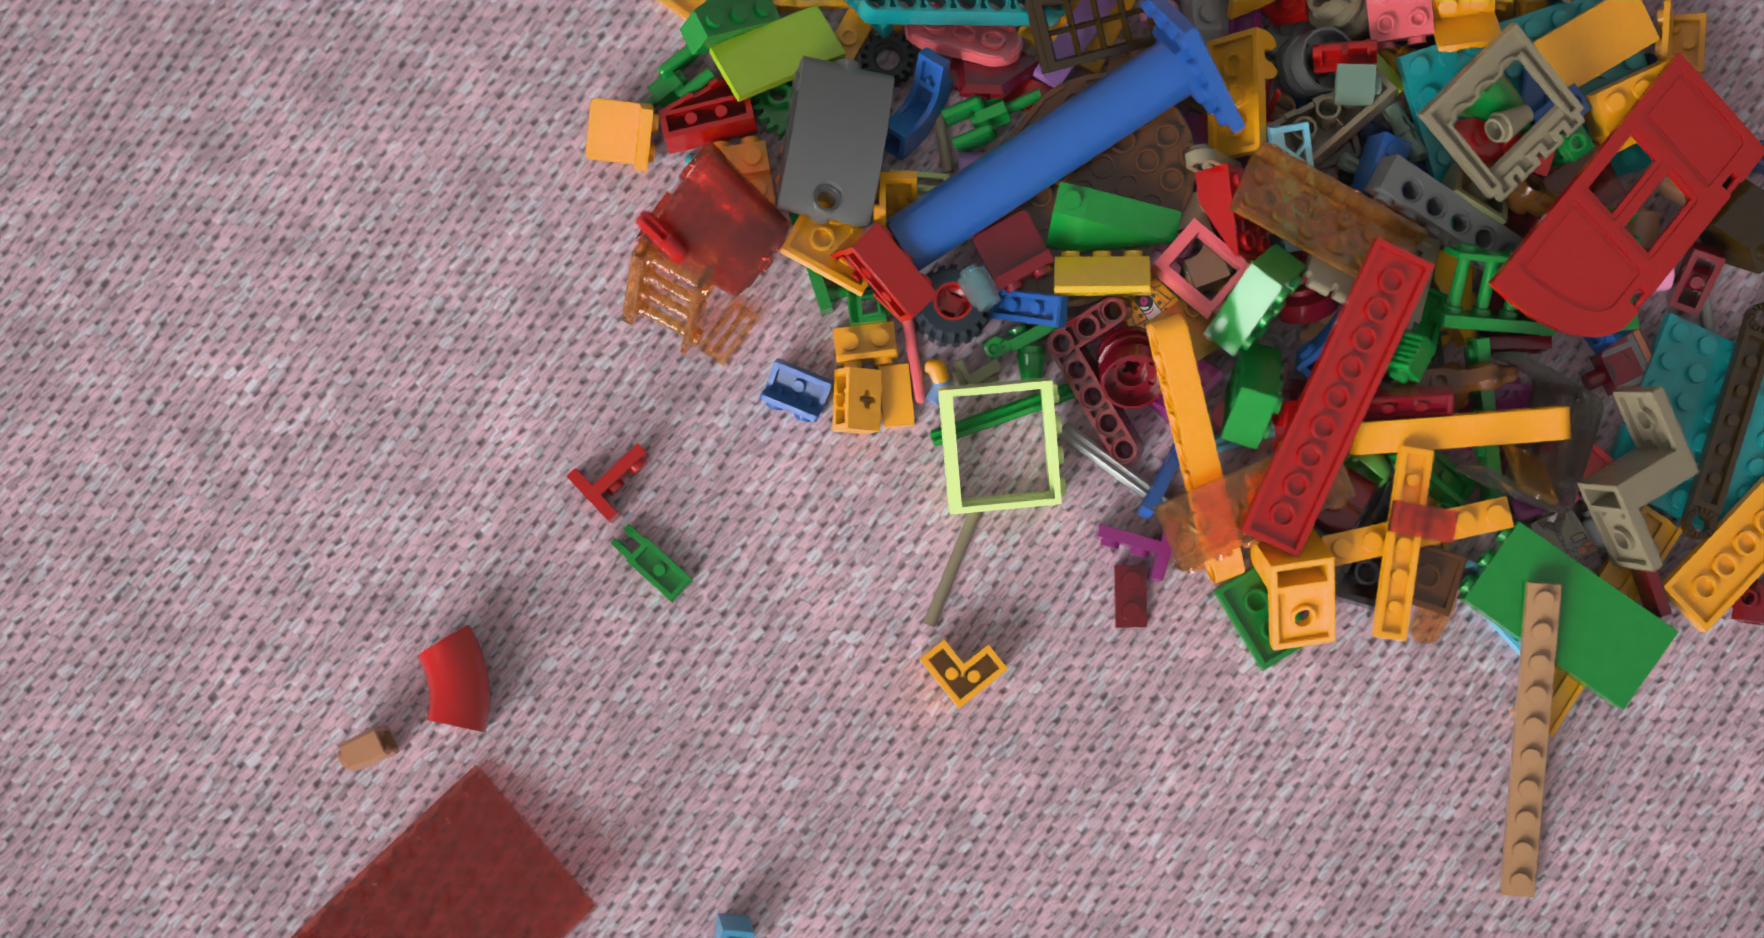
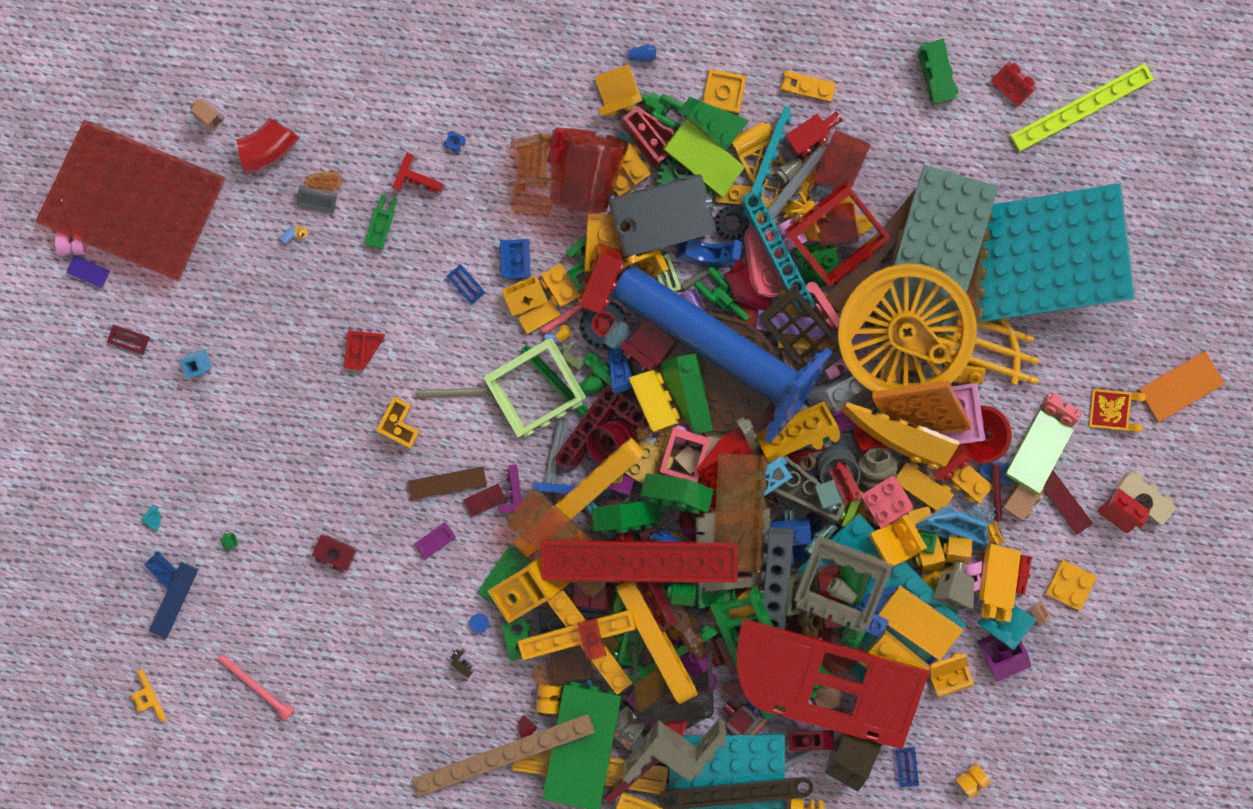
camera: 70 degrees right, 5 degrees up
(552, 622) = (324, 181): none -> clear orange tile
(573, 643) = (316, 199): none -> dark grey tile
(575, 402) = (454, 137): none -> blue plate
(586, 76) = (643, 53): none -> blue cone
(605, 699) = (294, 232): none -> arm
(797, 468) = (476, 296): none -> clear blue tile
(824, 677) = (361, 348): none -> red wing
(1080, 640) = (447, 482): none -> reddish brown tile
(1118, 838) = (346, 553): none -> dark red brick
(1158, 697) = (435, 540): none -> magenta tile
(1309, 687) = (479, 623): none -> blue tile
(1358, 645) = (512, 638): none -> green brick
(1366, 740) = (462, 666): none -> dark brown bracket
(1473, 635) = (549, 698): none -> light orange wheel
(1496, 688) = (526, 727): none -> dark red tile
(1567, 357) = (733, 689): none -> dark red tile

